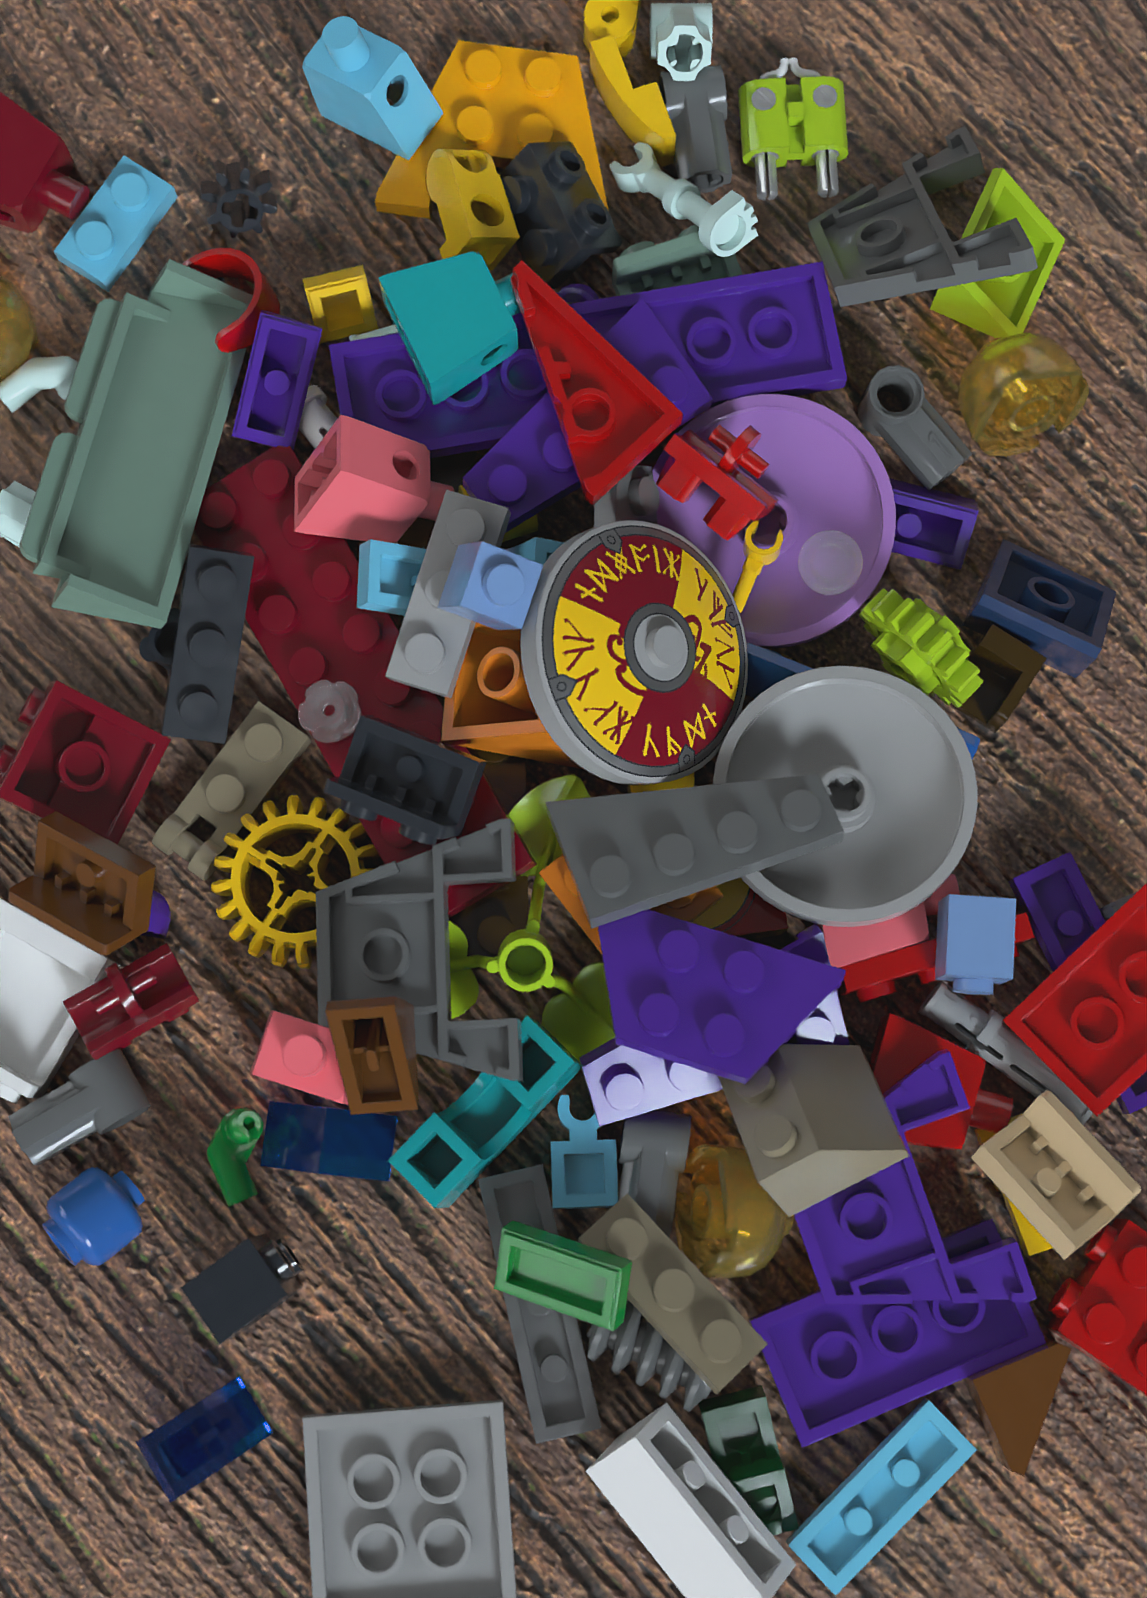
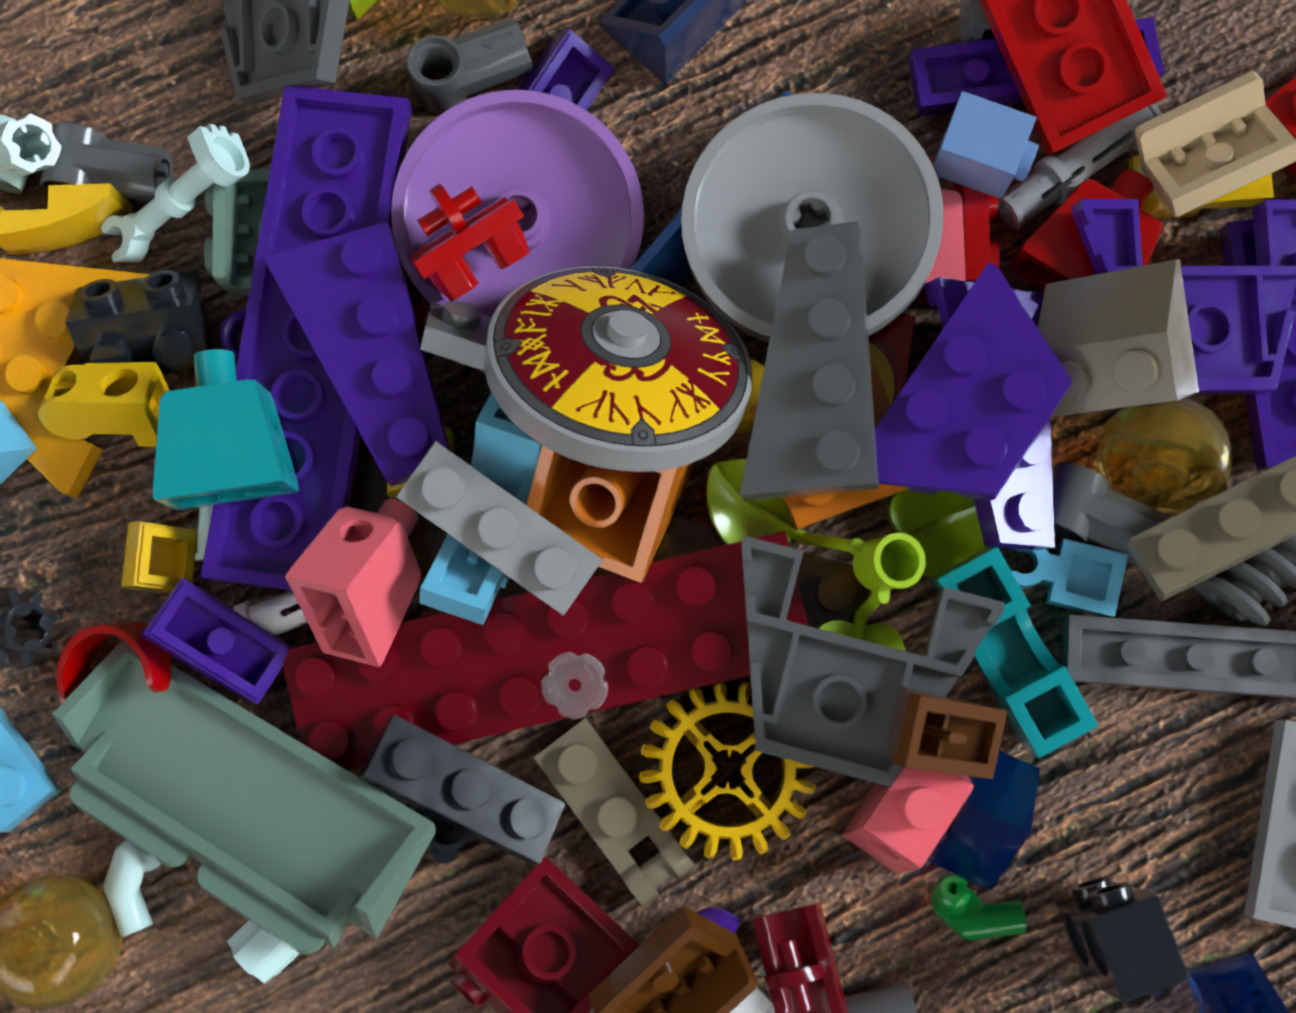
camera: 65 degrees left, 0 degrees up
(407, 780) = (674, 627): black bracket -> none
(490, 586) = (515, 476): medium blue brick -> none
(563, 1275) = (1193, 621): green tile -> none
(600, 398) = (353, 320): red wing -> none
(753, 564) = (554, 236): yellow hand -> none
(793, 124) = (137, 79): lime piece -> none
(830, 562) = (581, 166): clear plate -> none
(921, 647) = (686, 113): lime gear -> none
(1006, 673) = (730, 65): dark brown panel -> none

